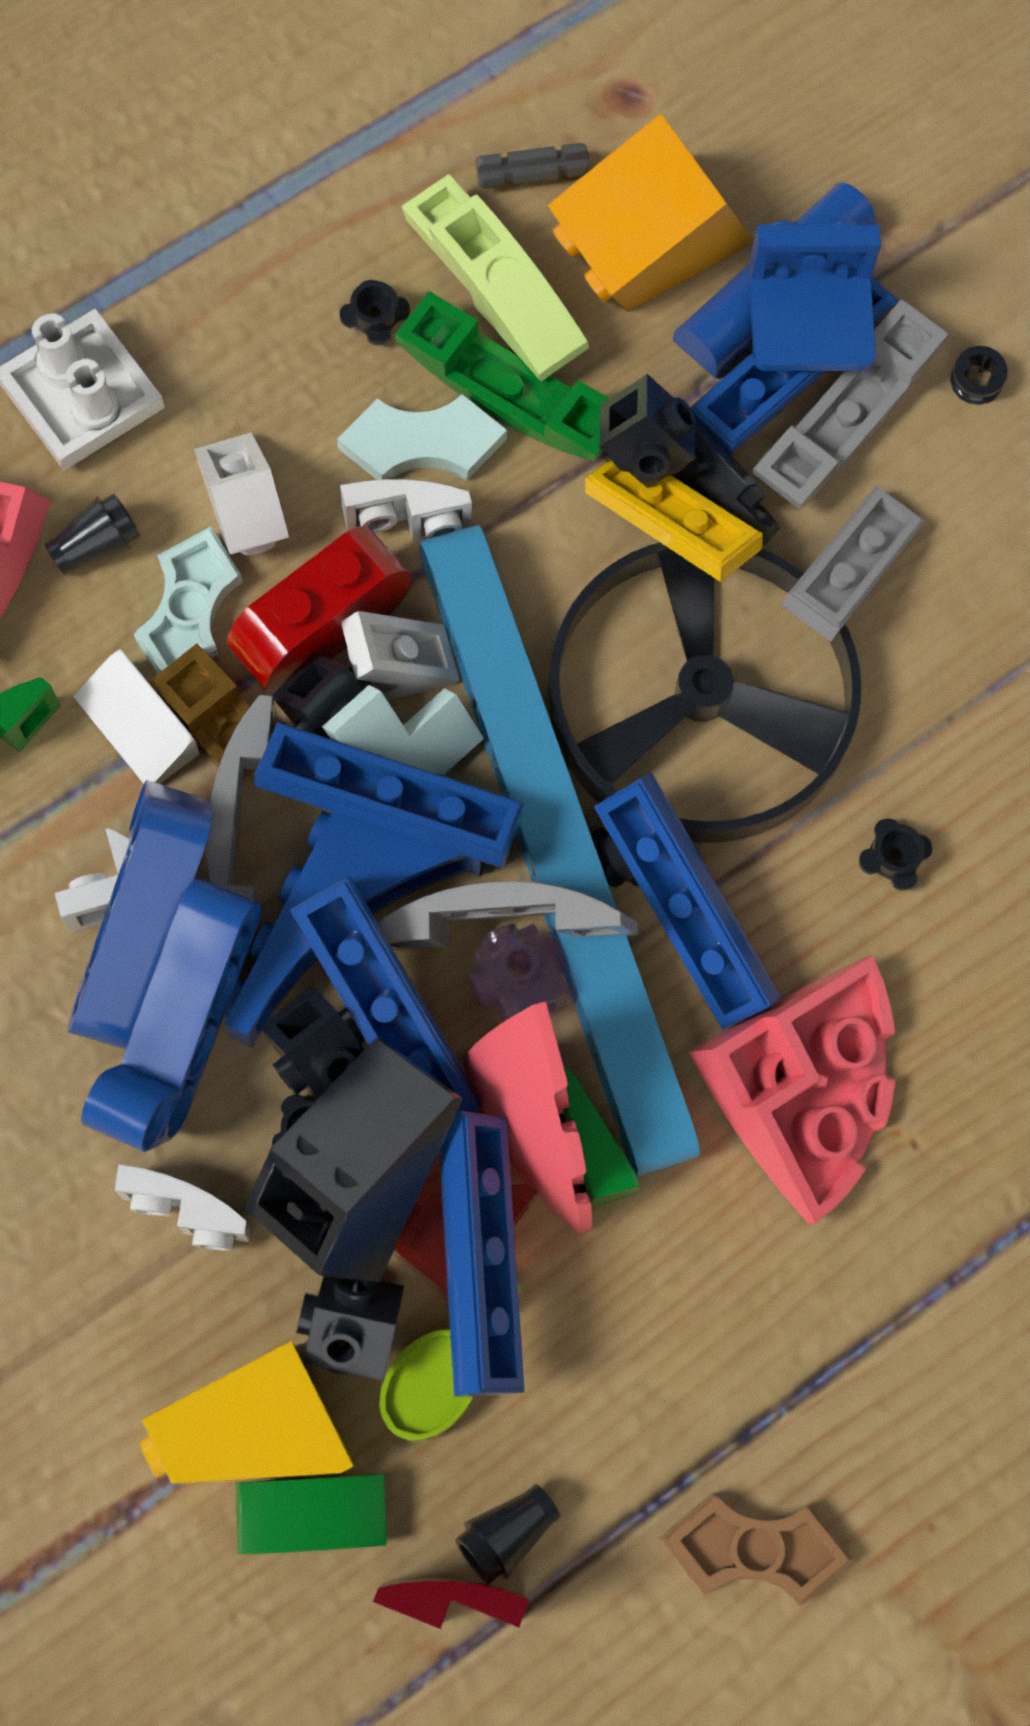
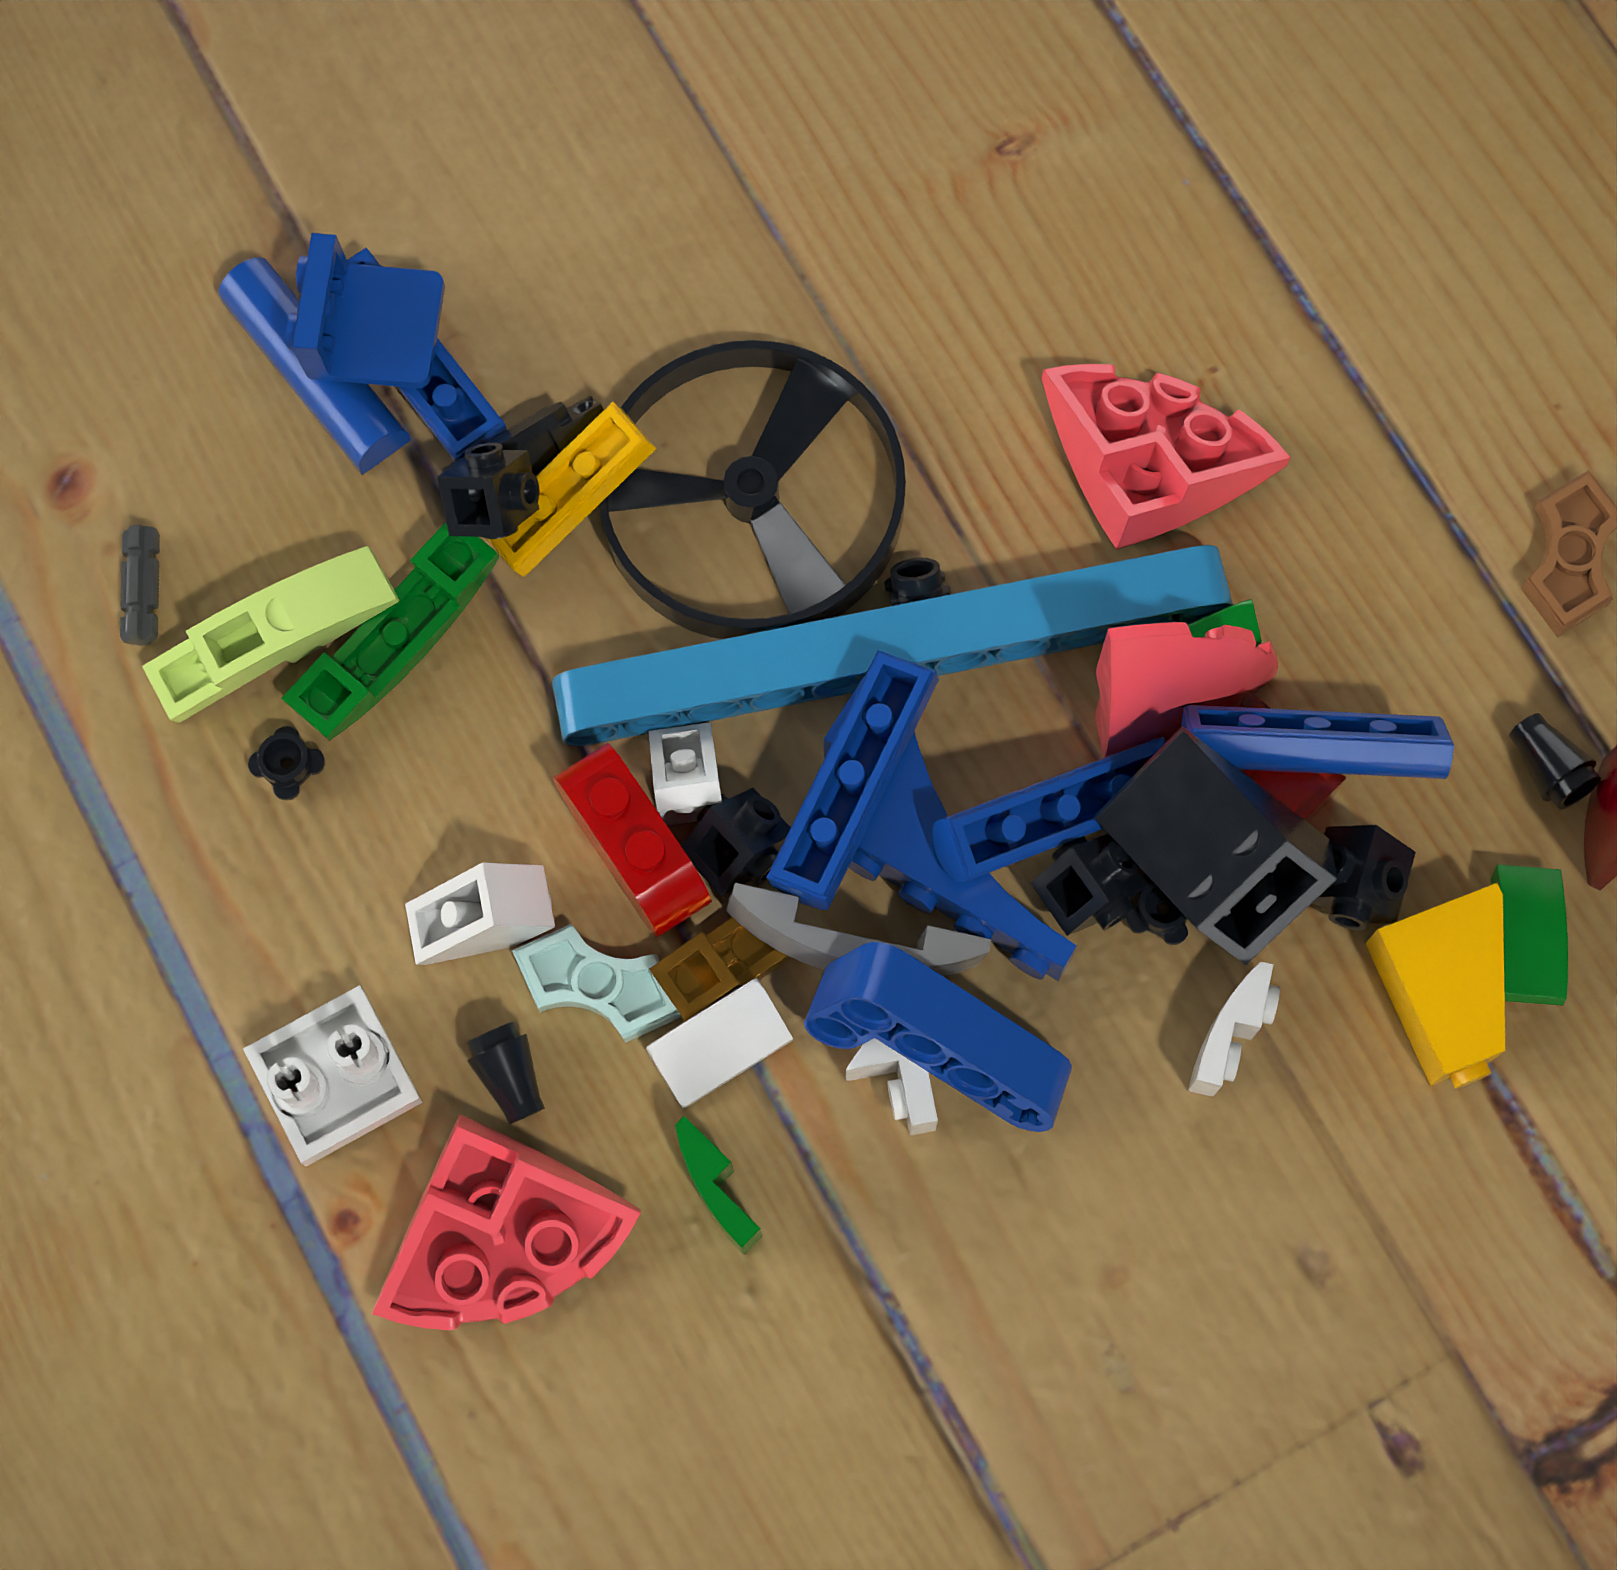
camera: 75 degrees left, 0 degrees up
(178, 1022) = (1094, 1034): blue beam -> none
(419, 1391) = (1416, 814): lime piece -> none
(427, 506) = (524, 737): white slope -> none
(428, 919) = (993, 609): light grey slope -> none
(430, 740) = (786, 766): light aqua tile -> none
(447, 438) = (443, 703): light aqua tile -> none
(521, 951) = (1034, 688): clear purple brick -> none
(646, 218) = (232, 474): light orange slope -> none
(687, 901) = (974, 525): blue brick -> none
(851, 408) = (473, 317): light grey slope -> none
(852, 563) = (643, 331): light grey tile -> none
(913, 849) = (938, 324): black plate -> none
(984, 358) = (460, 180): black bush -> none

